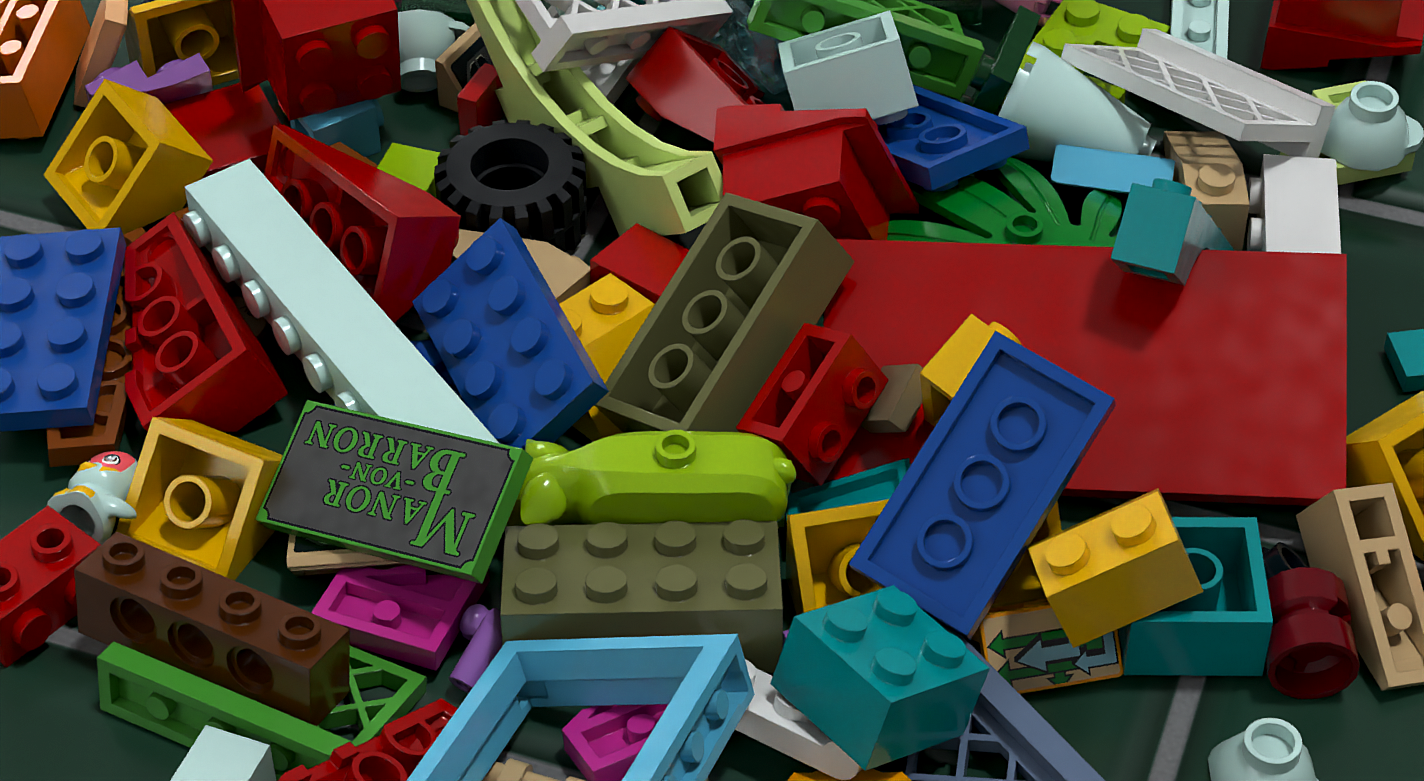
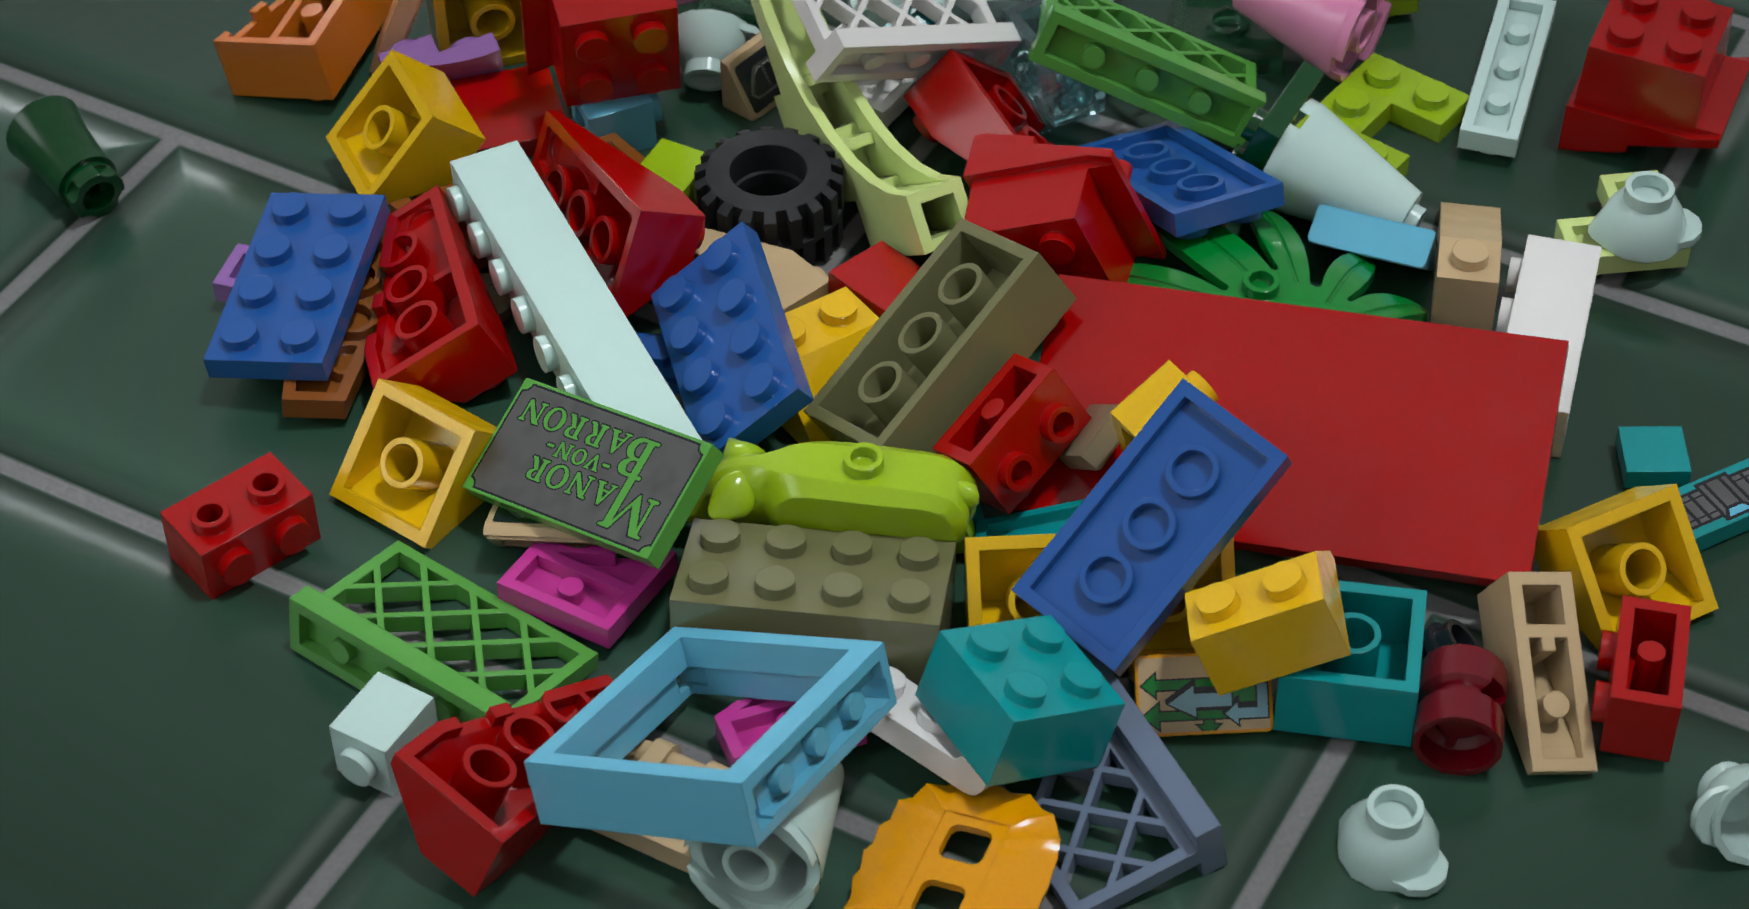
camera: 10 degrees right, 0 degrees up
(98, 494) = (319, 449): light aqua animal -> none
(213, 628) = (401, 583): reddish brown brick -> none
(478, 100) = (756, 104): red tile -> none
(485, 637) = (656, 619): medium lavender arm -> none
(850, 69) = (1121, 108): light aqua brick -> none
(1164, 232) = (1386, 299): teal arch -> none
(1210, 91) = (1484, 165): white fence -> none

